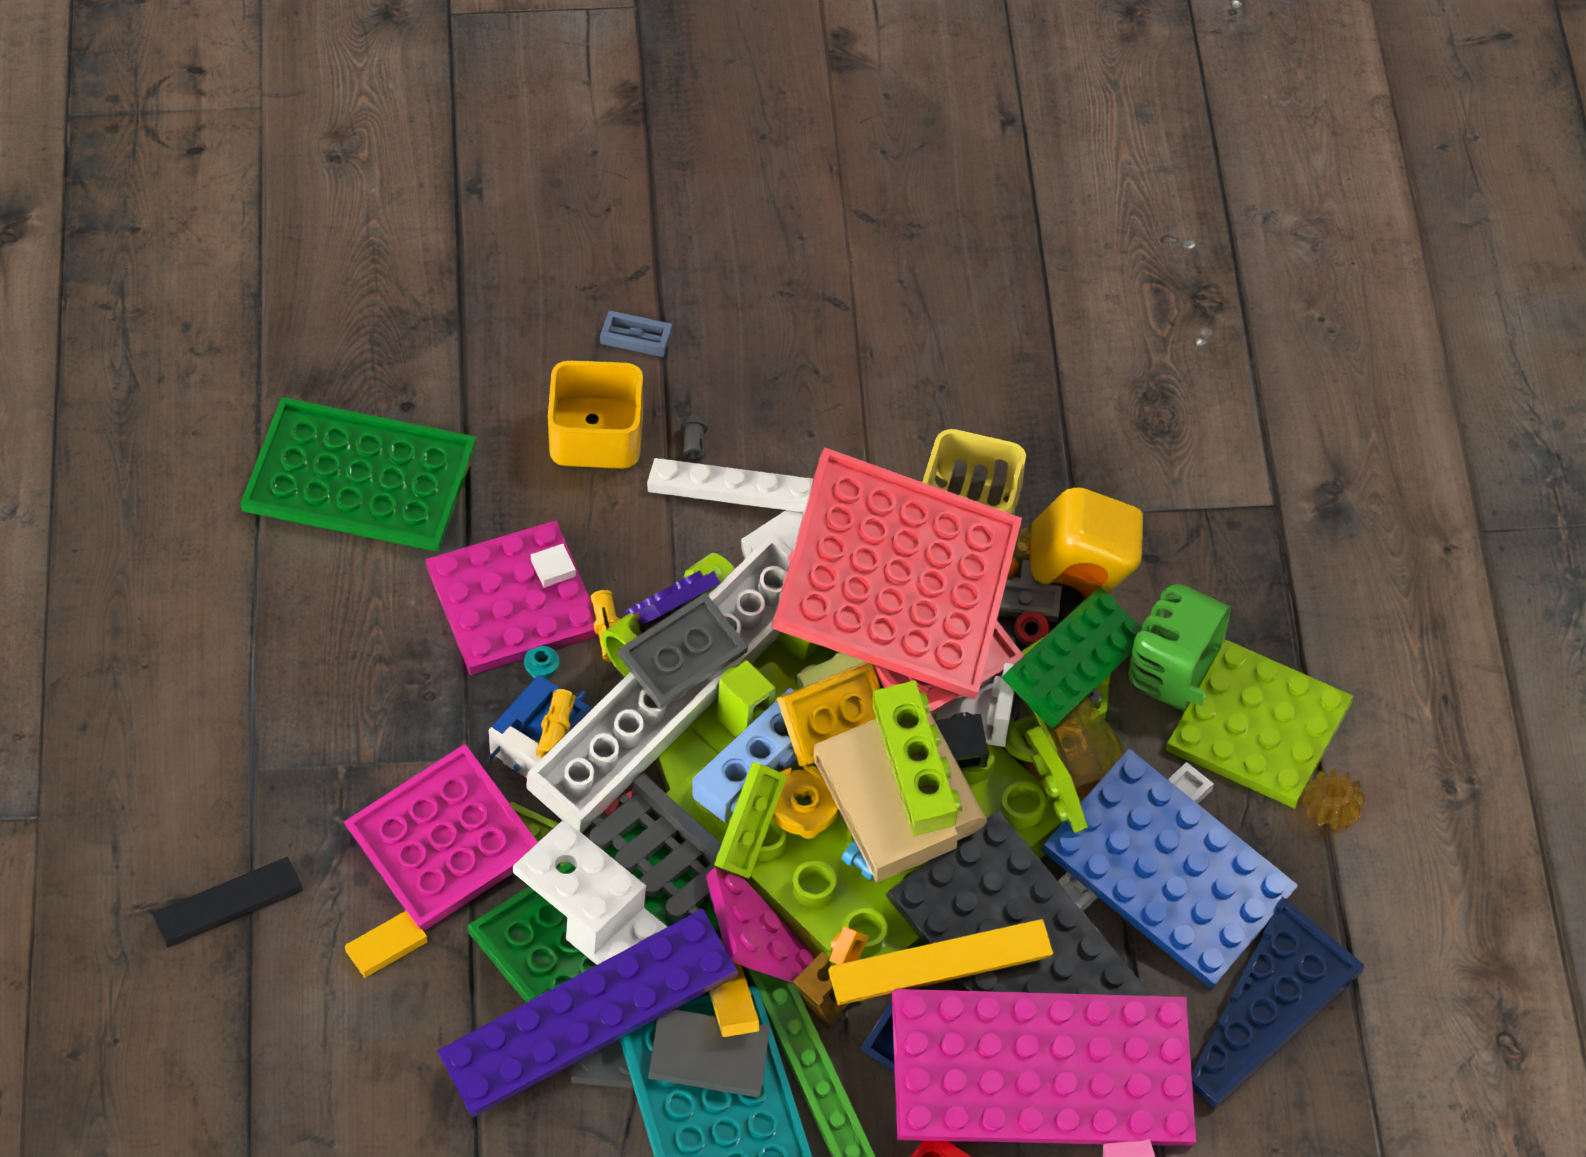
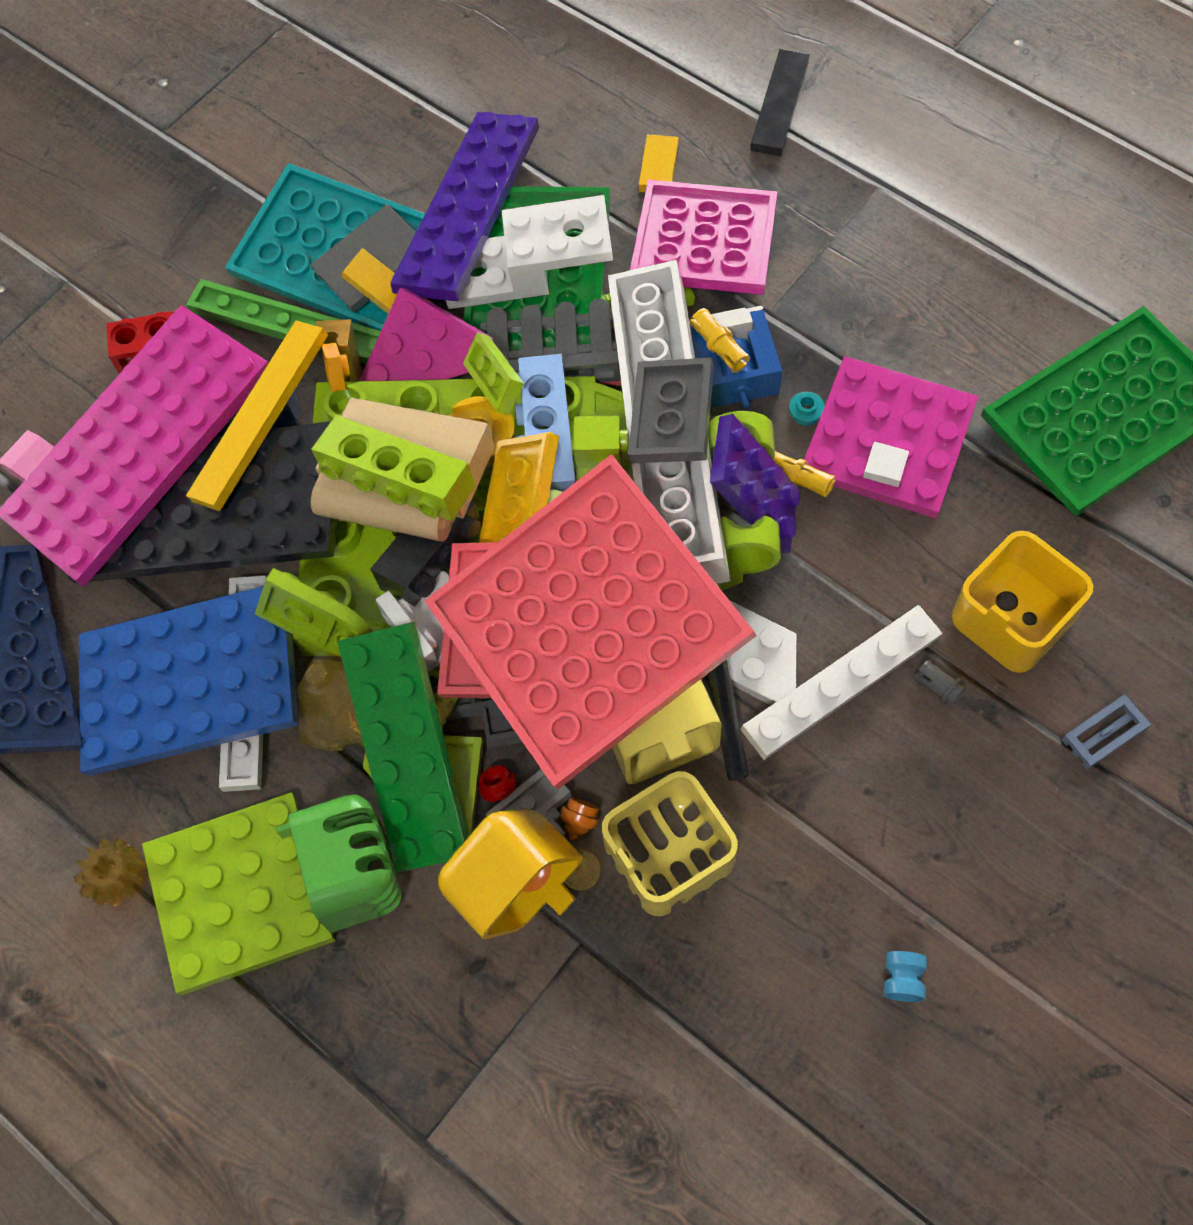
camera: 140 degrees right, 10 degrees up
(916, 330) = (906, 971): none -> dark azure wheel

